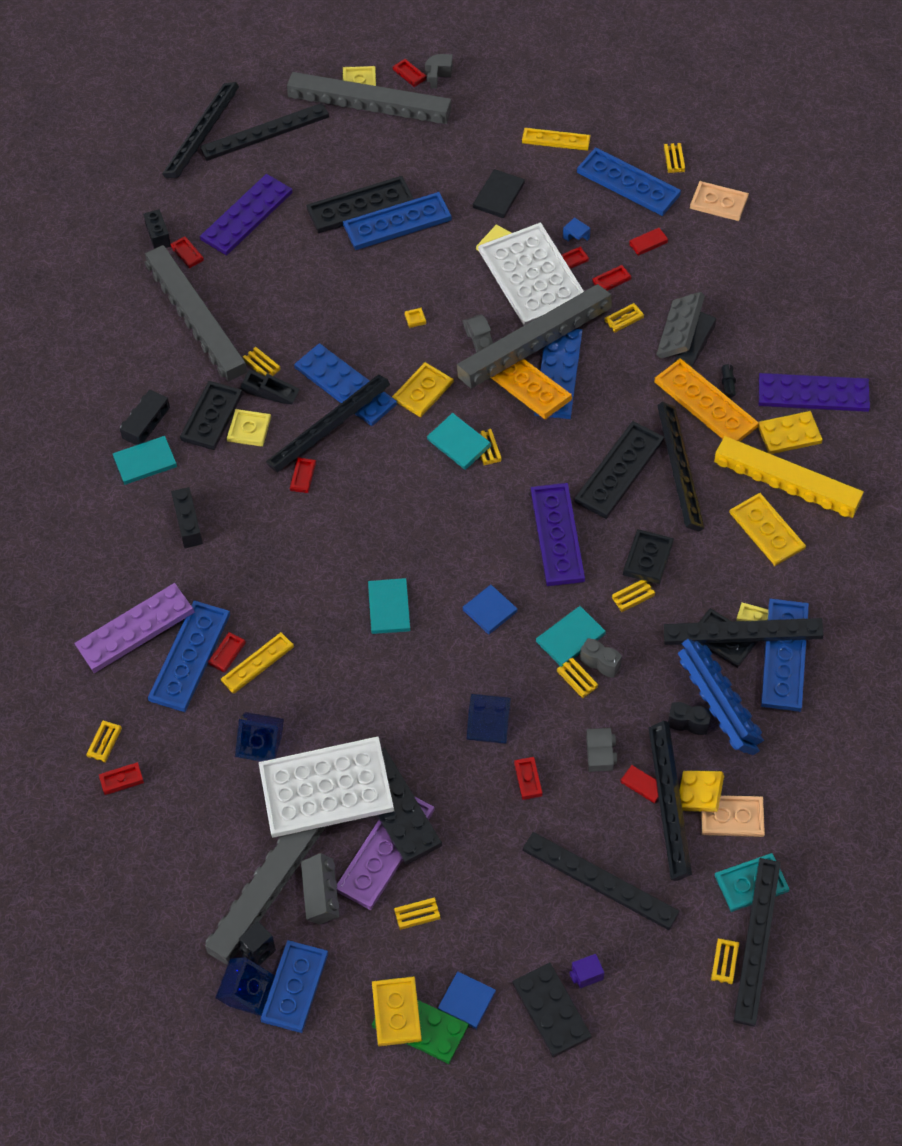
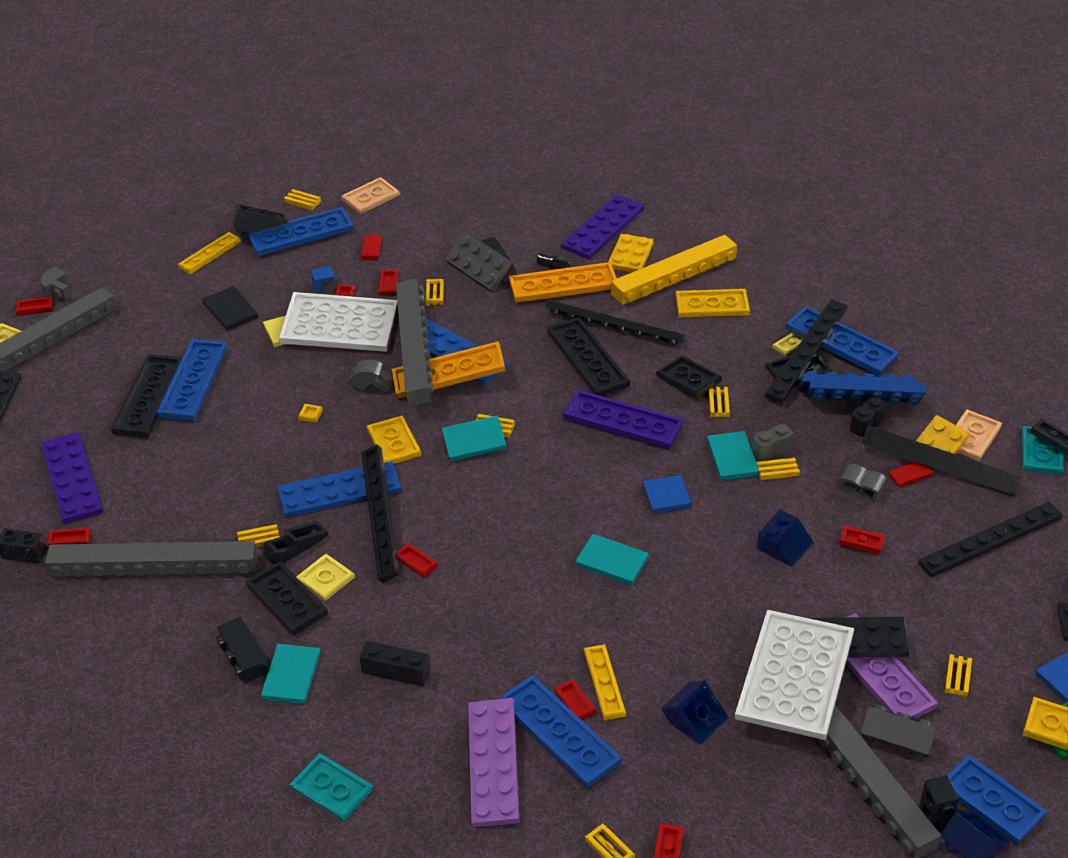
camera: 60 degrees left, 15 degrees down
(60, 542) = (331, 787): none -> teal tile
(613, 142) = (254, 219): none -> black slope

